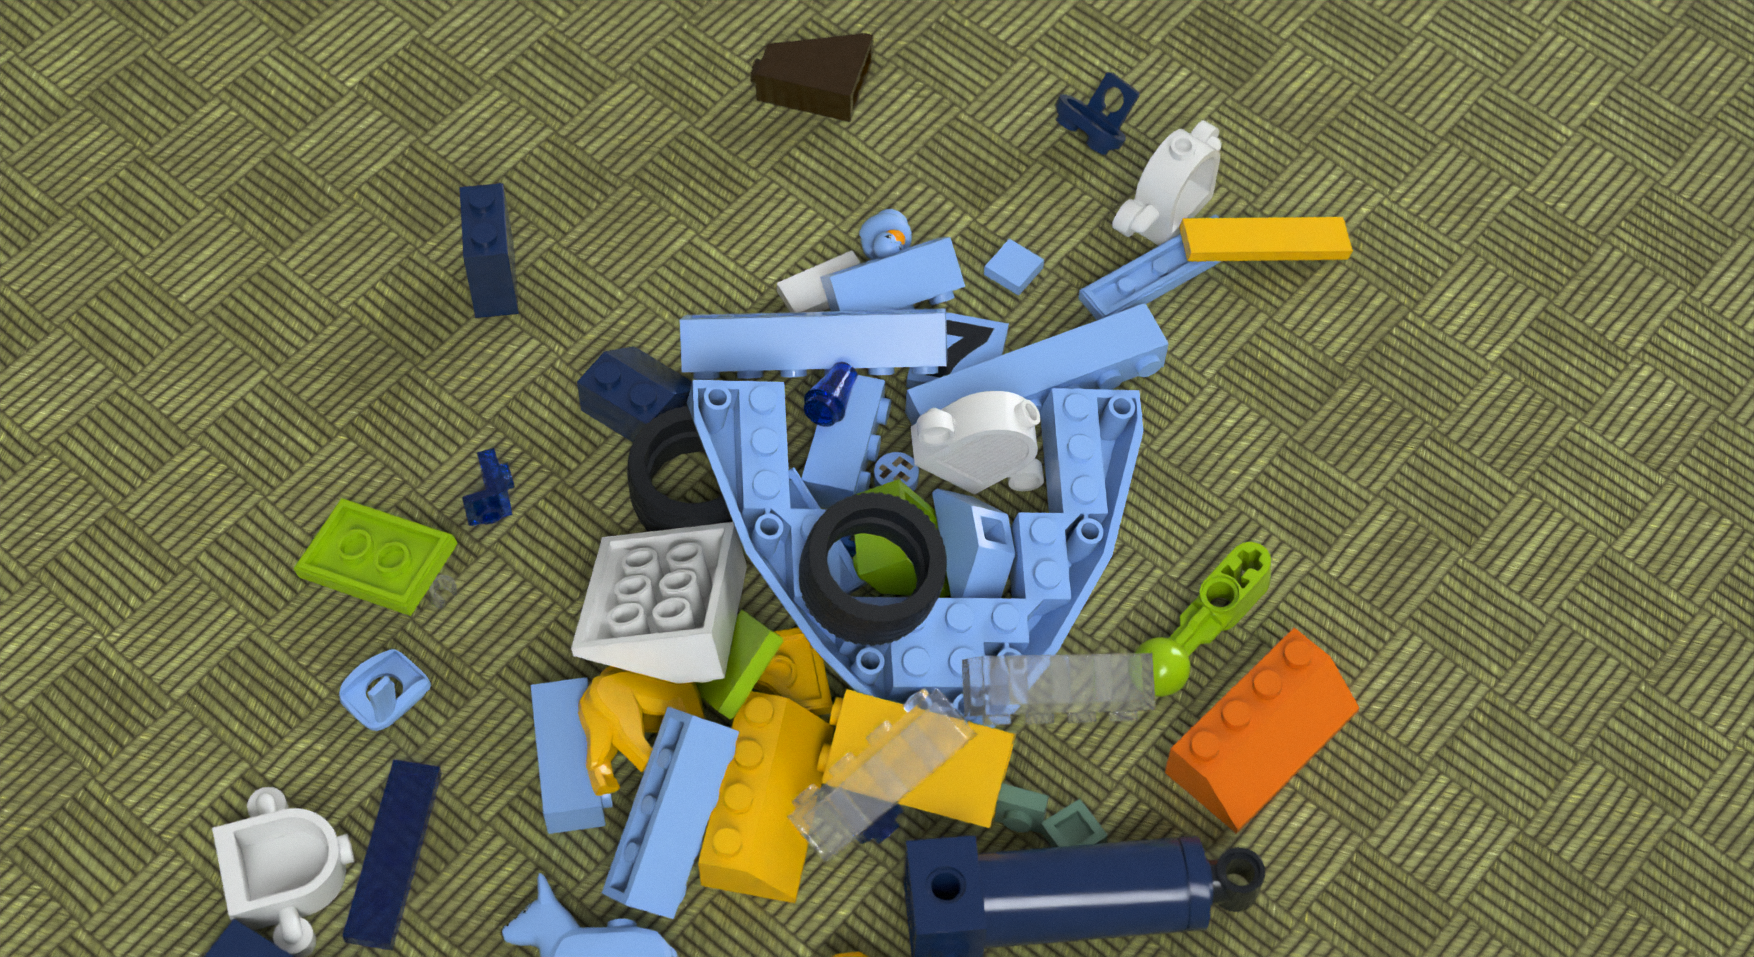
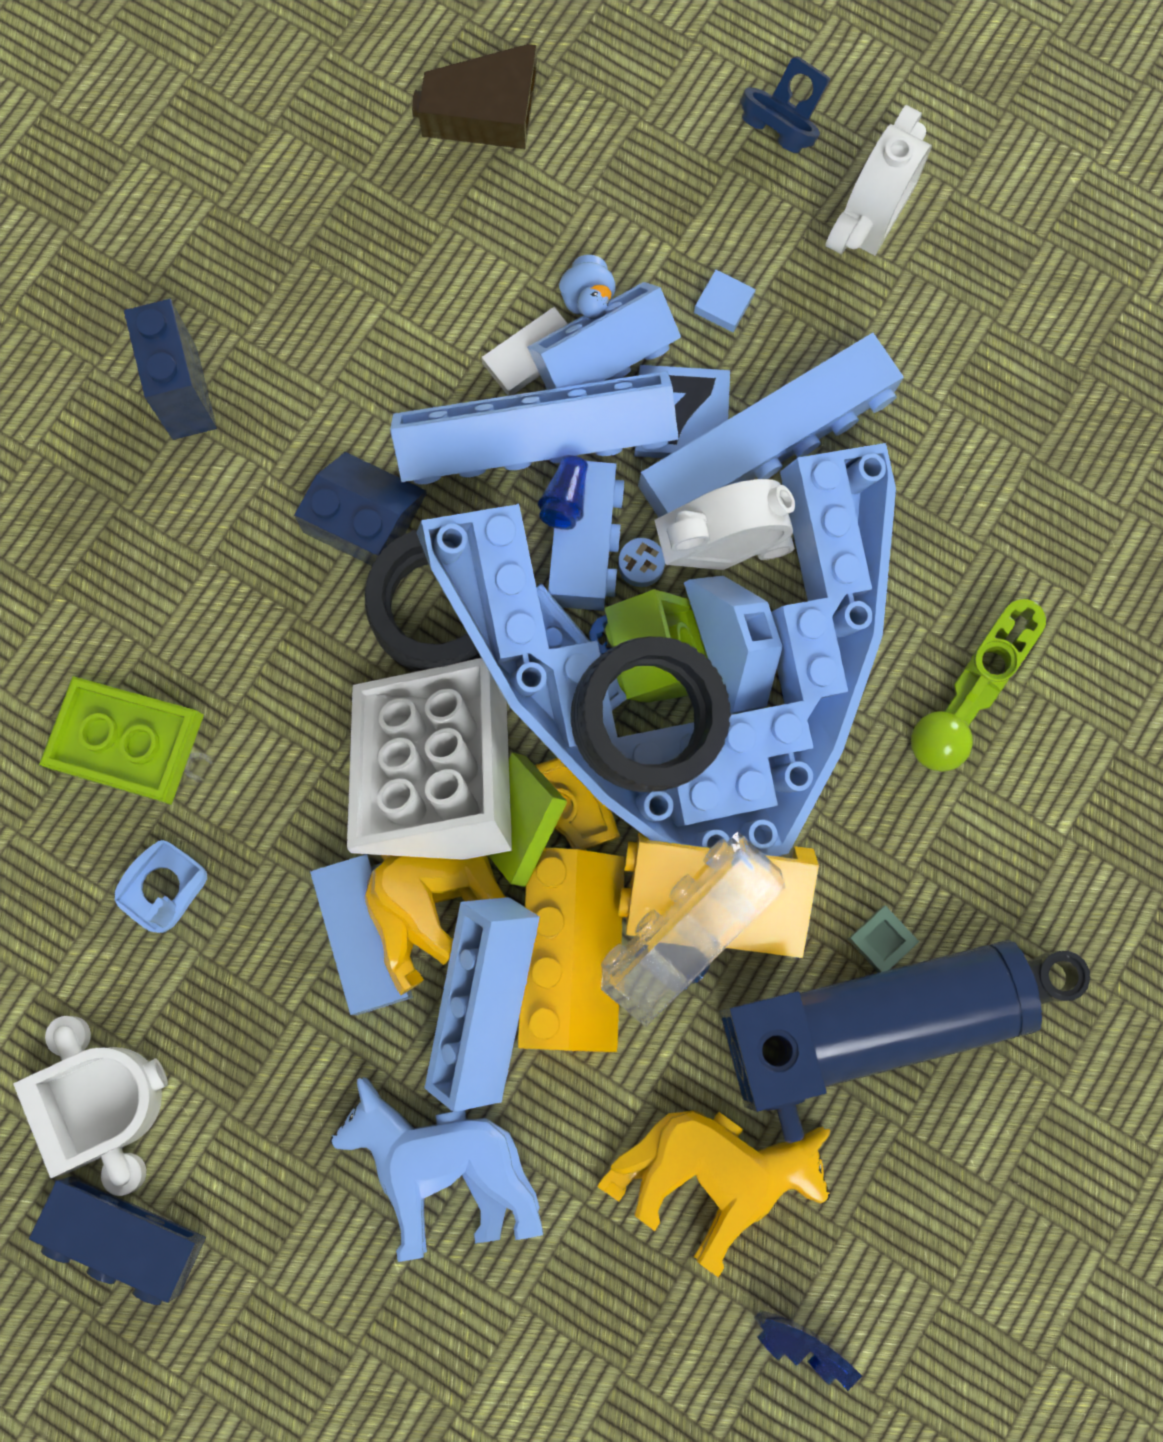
camera: 10 degrees left, 20 degrees up
(392, 855) = (204, 1067): clear blue tile -> none
(494, 502) = (231, 634): clear blue bracket -> none
(1021, 808) = (831, 926): sand green plate -> none
(1058, 686) = (850, 797): clear brick -> none
(1142, 279) = (875, 283): light blue tile -> none
(1263, 731) = (1054, 799): orange slope -> none
(1265, 239) = (981, 233): yellow tile -> none

